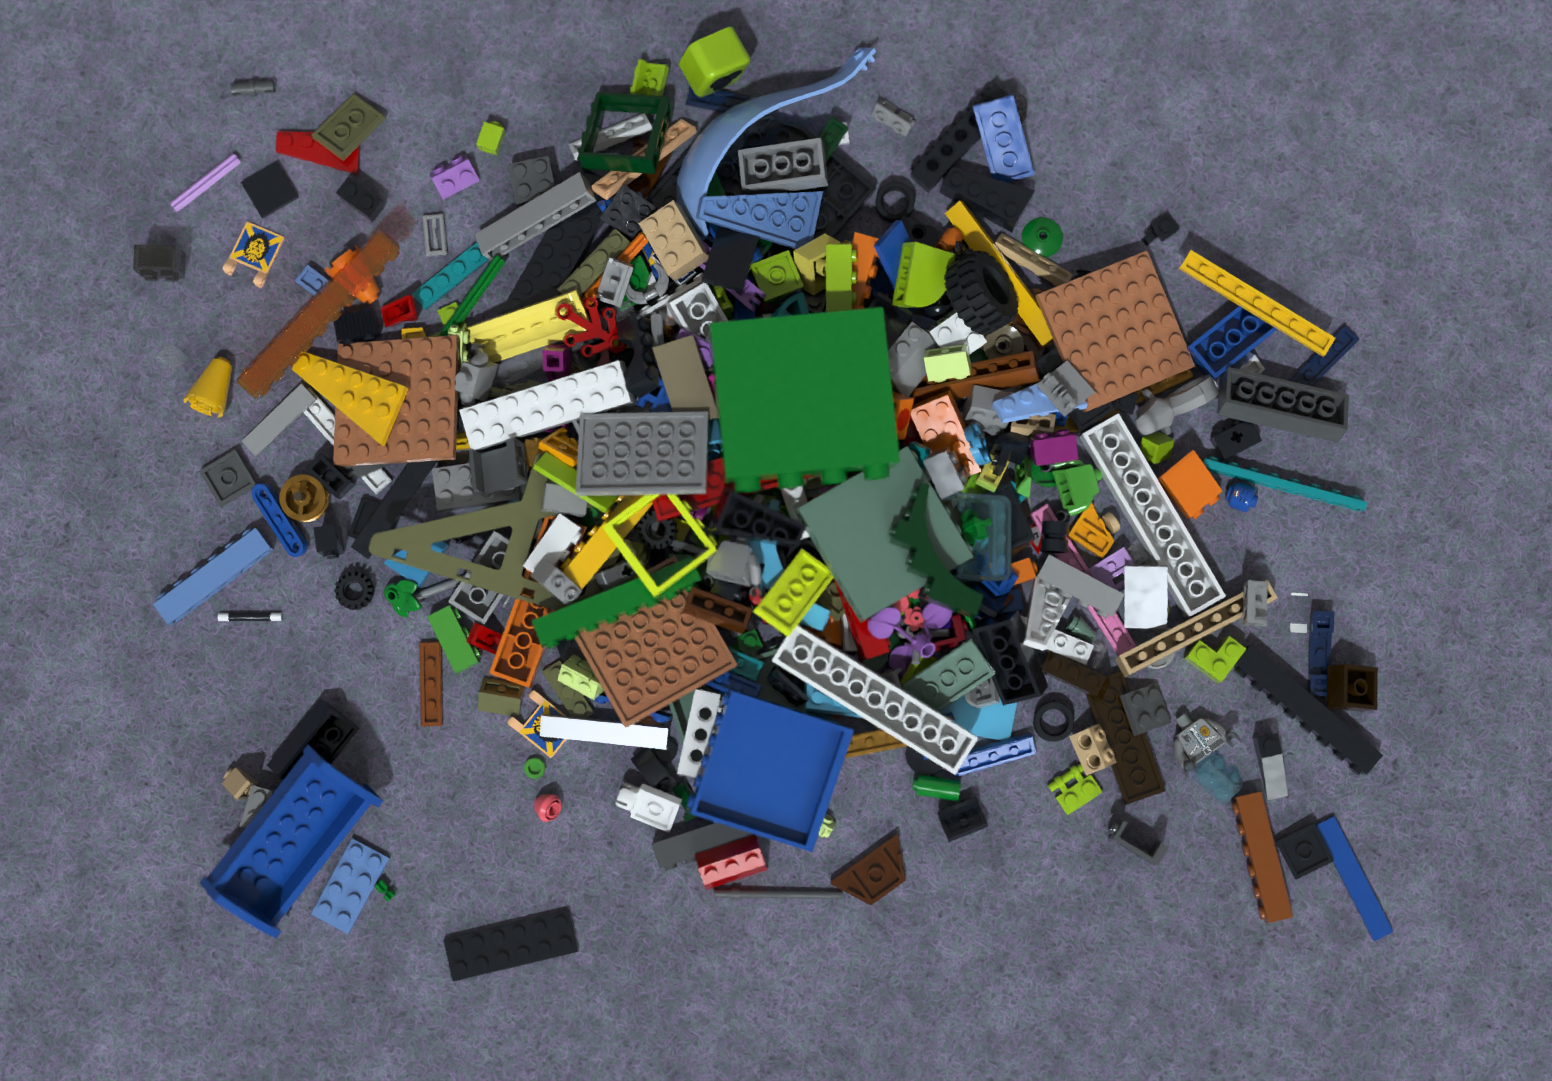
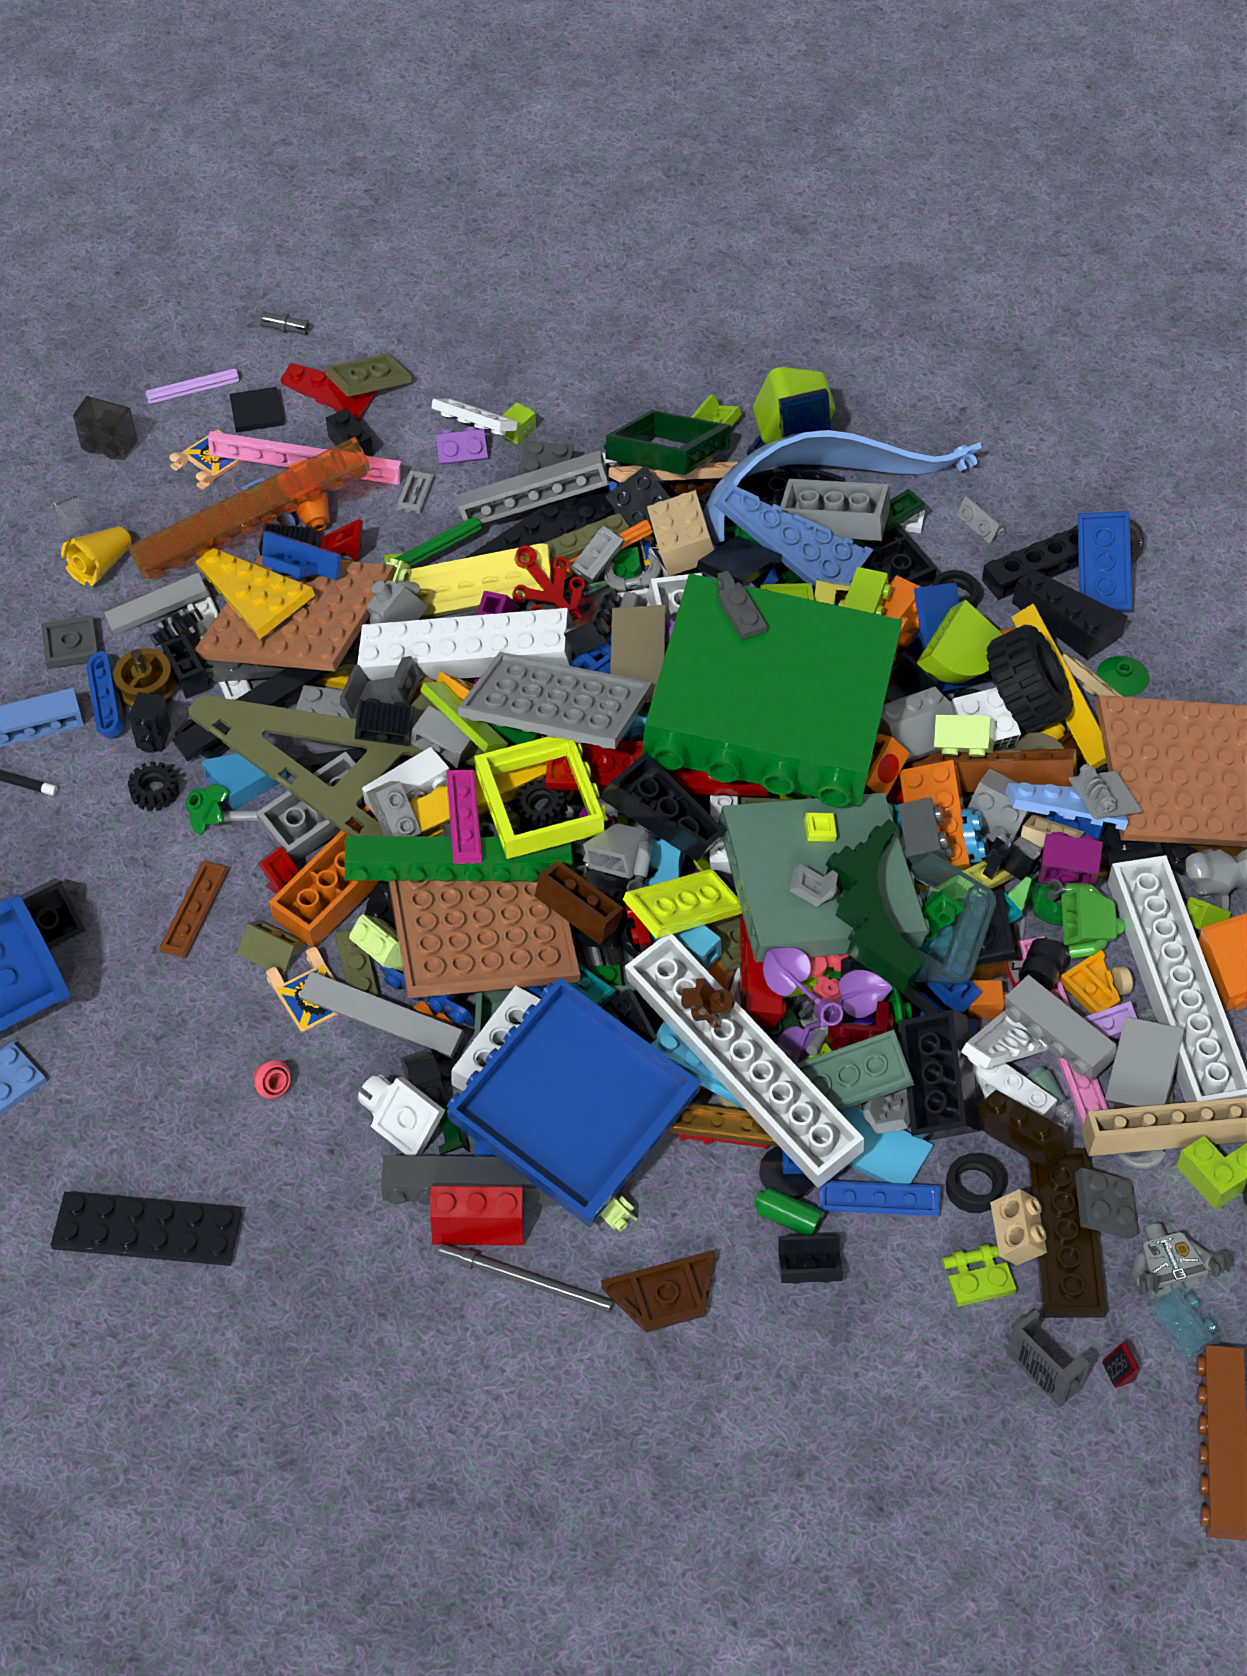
camera: 20 degrees right, 30 degrees down
(308, 443) = (176, 625): none -> black gear
(332, 235) = (286, 454): none -> bright pink tile
(377, 355) = (298, 558): none -> blue bracket
(382, 887) = (20, 1110): green piece -> none
(450, 277) = (412, 531): teal plate -> none
(453, 639) = (244, 875): bright green brick -> none
(454, 146) = (469, 414): none -> white plate
(517, 506) = (384, 722): none -> black brick
(534, 768) = (276, 1036): bright green tile -> none
(609, 571) = (463, 816): none -> dark pink tile
(732, 84) = (804, 414): none -> clear blue tile
(759, 345) = (739, 607): none -> dark grey hinge
(844, 681) = (707, 1003): none -> reddish brown hips
(873, 499) = (820, 827): none -> neon yellow tile
(886, 558) = (812, 885): none -> light grey bracket
(1184, 825) = (1121, 1366): none -> slope

